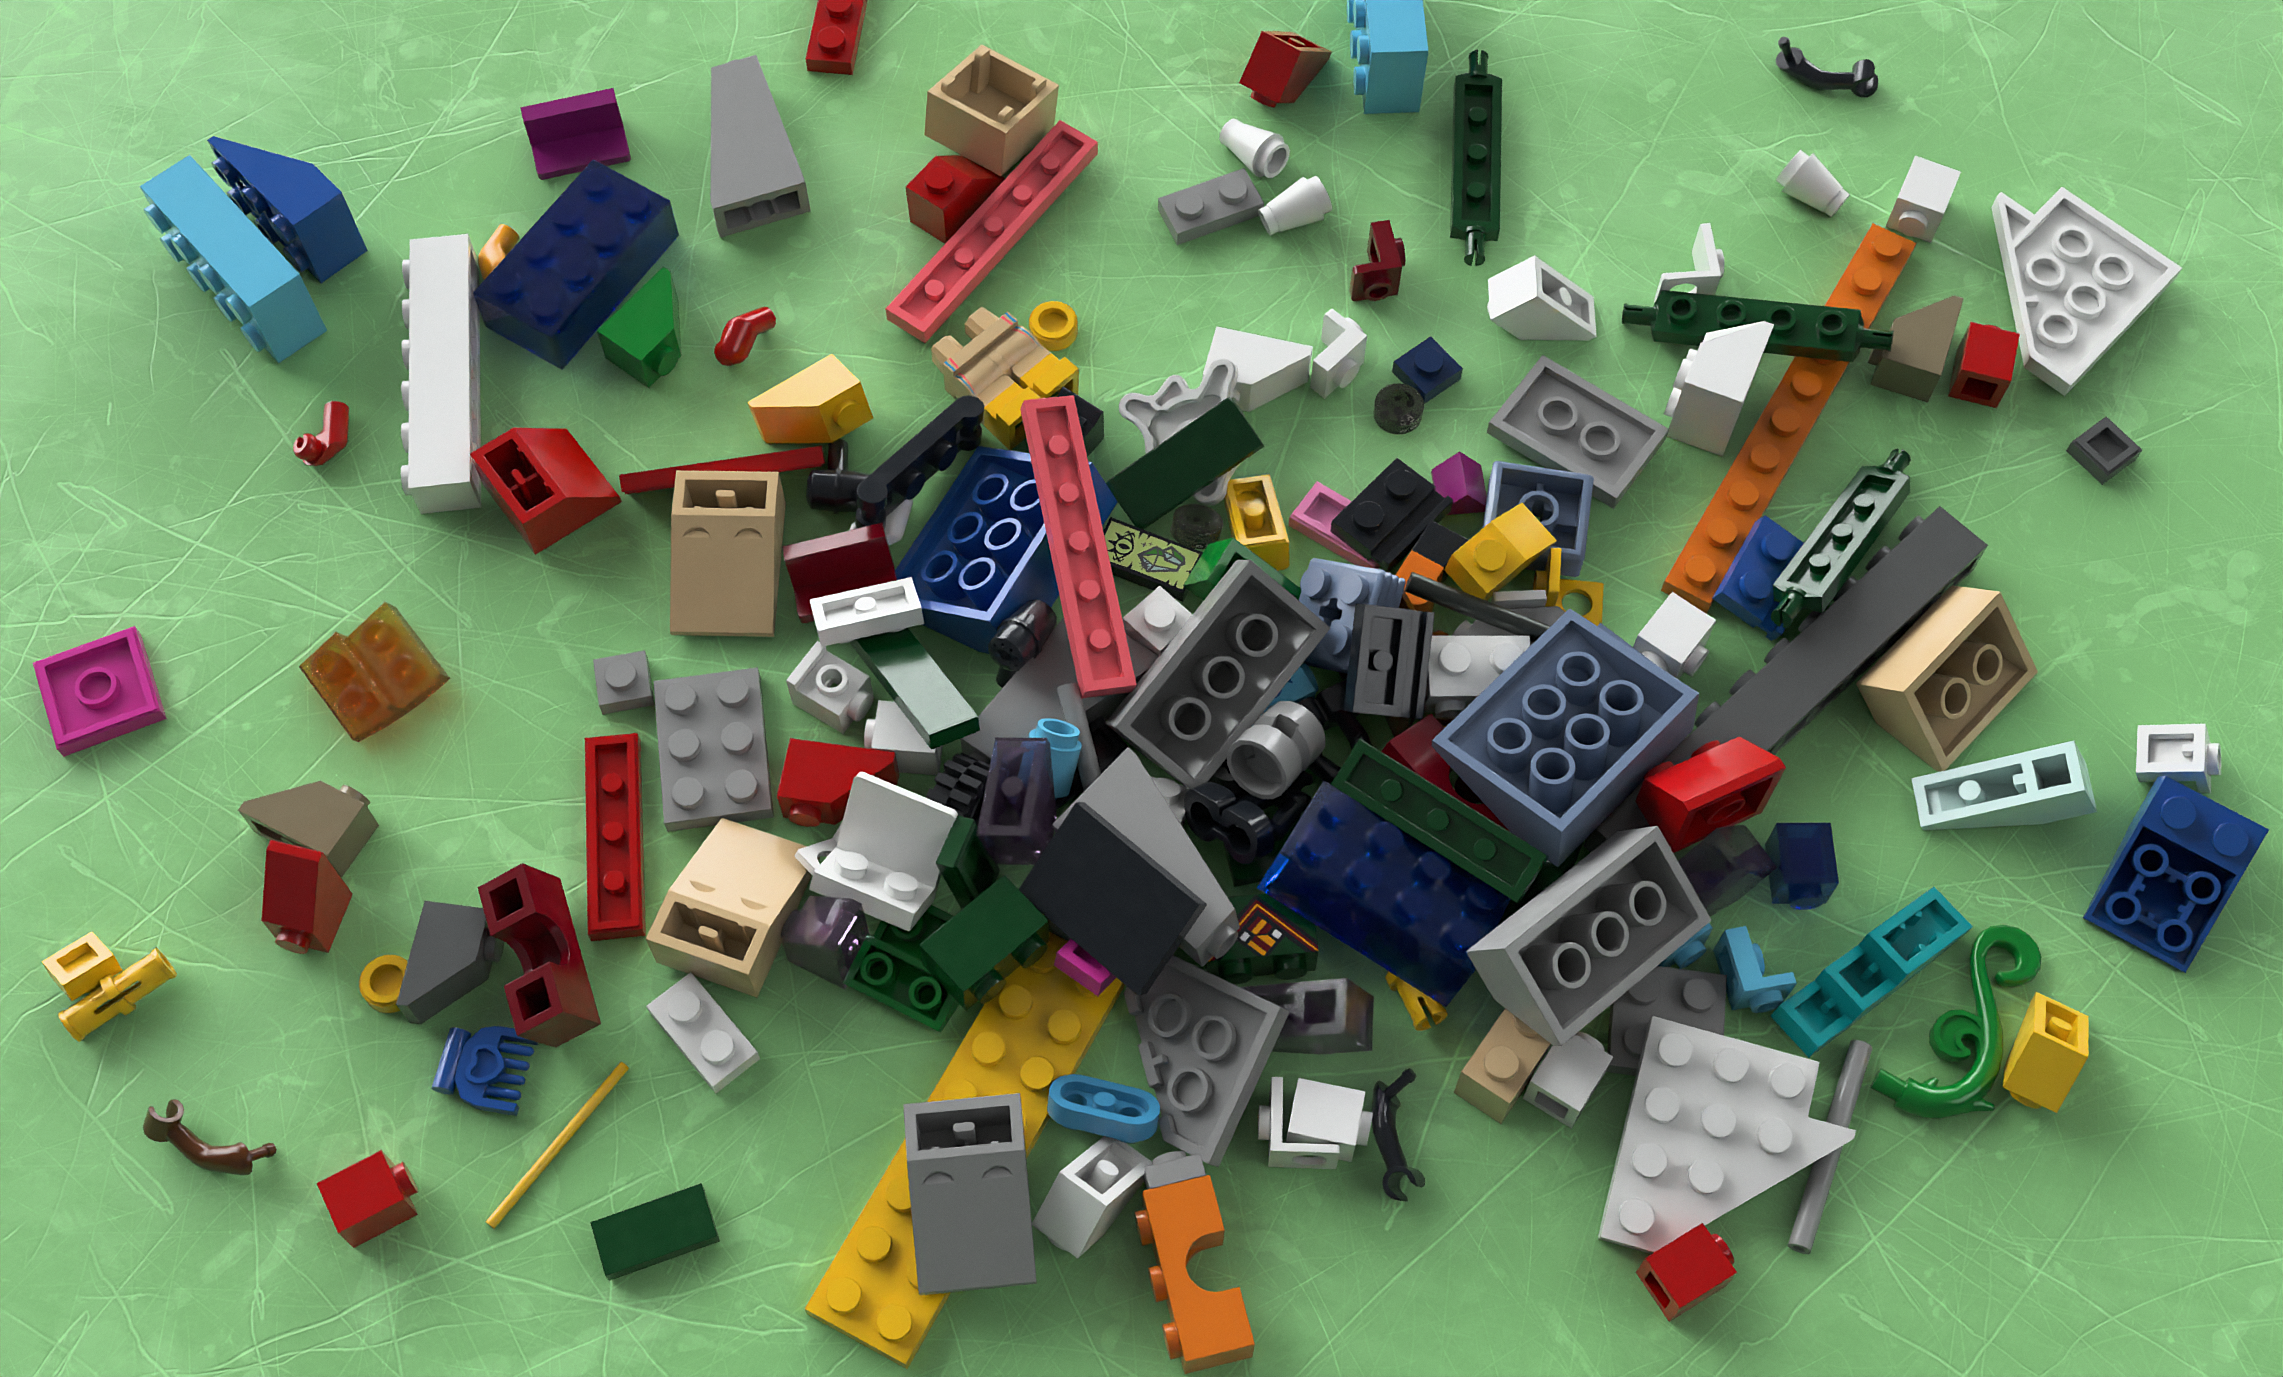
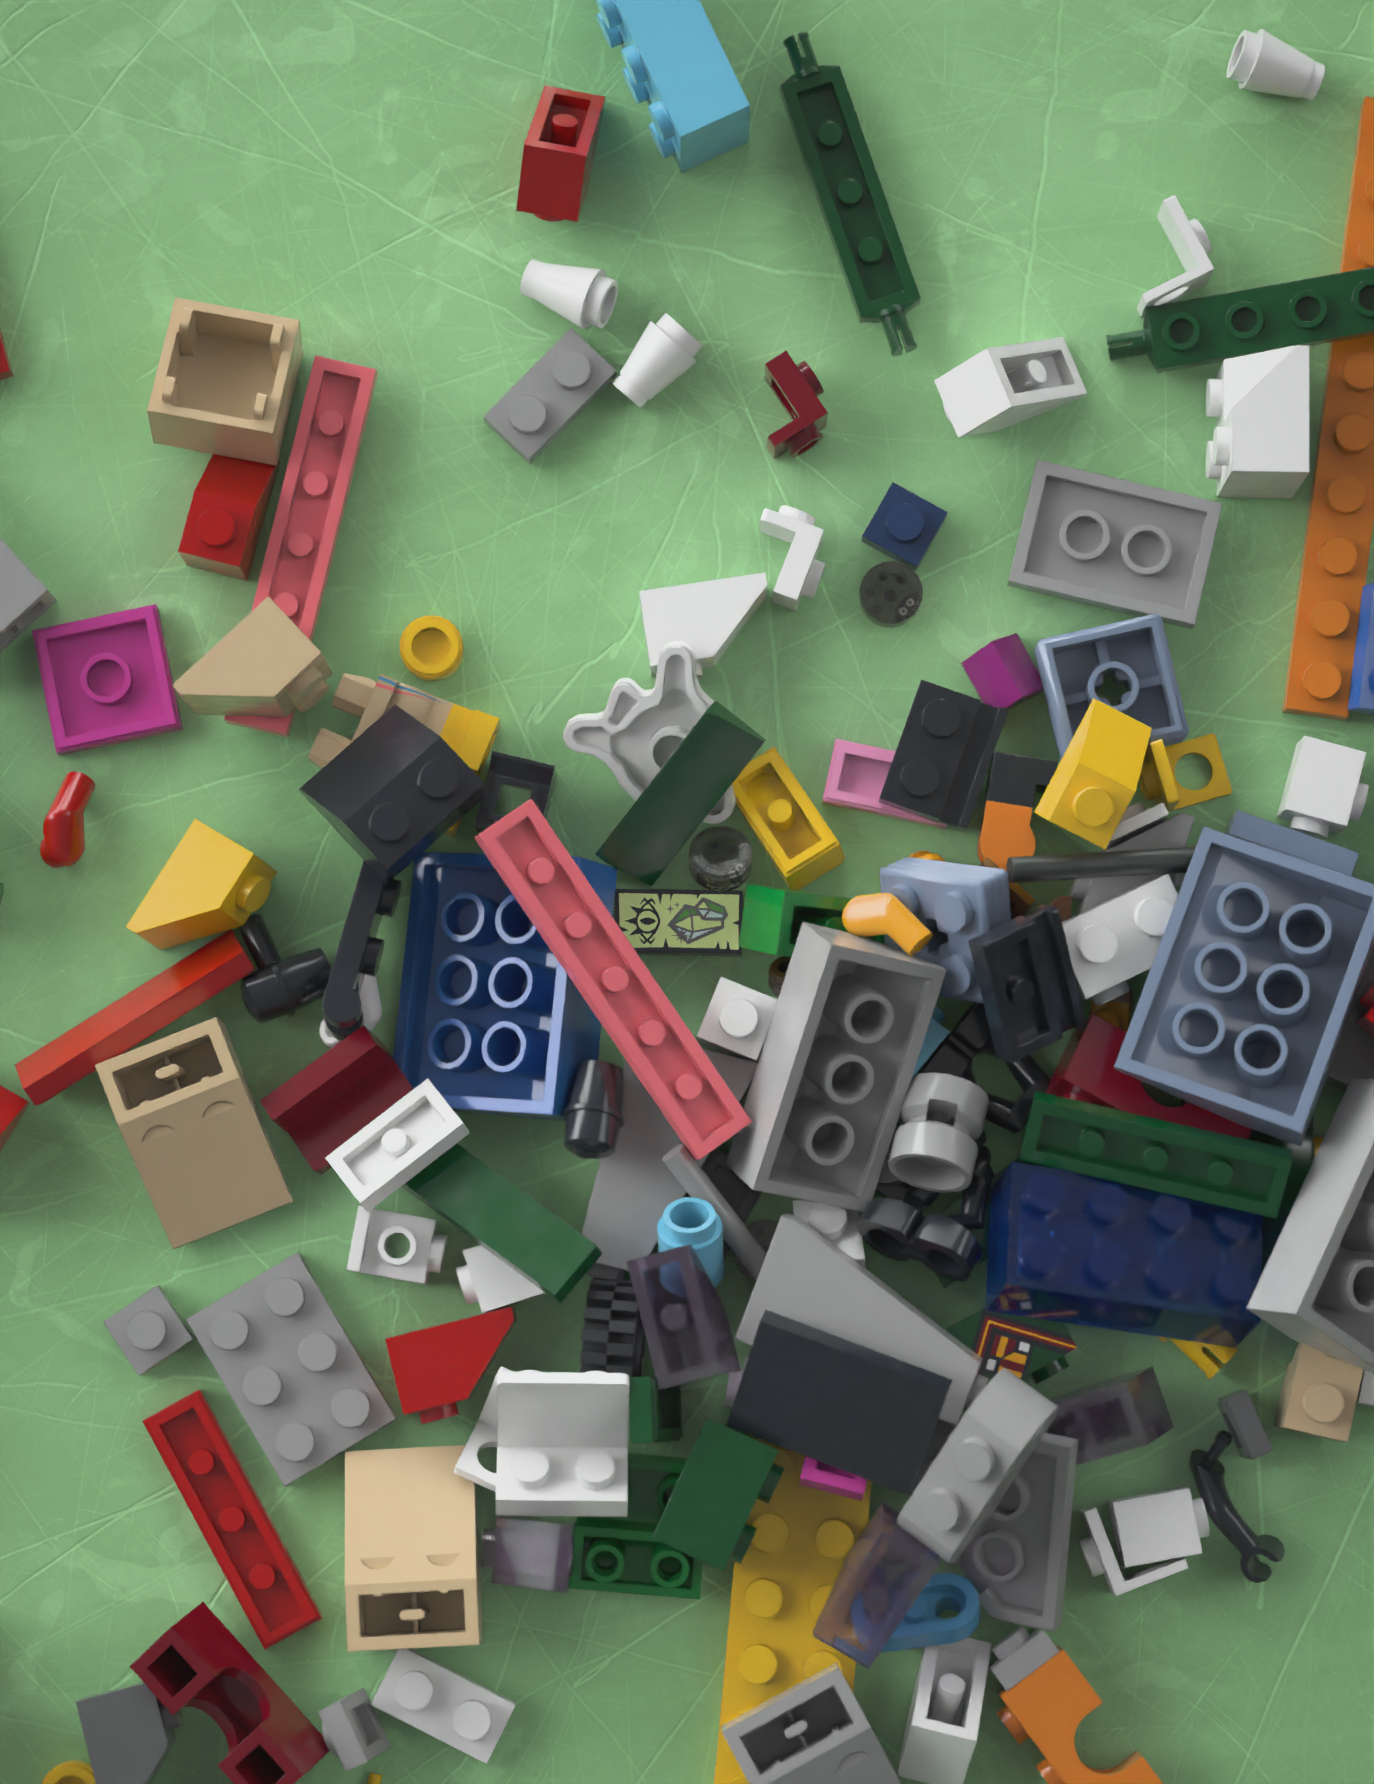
camera: 20 degrees left, 20 degrees up
(623, 1016) = (353, 1730): none -> light grey plate
(818, 265) = (107, 680): none -> dark pink tile
(918, 265) = (257, 670): none -> tan slope
(980, 379) = (394, 791): none -> black slope
(1079, 1060) = (875, 1588): none -> clear purple slope
(1199, 986) = (977, 1465): none -> light grey brick
(1302, 580) = (884, 915): none -> light orange arm
(1430, 1071) = (1244, 1425): none -> dark grey tile

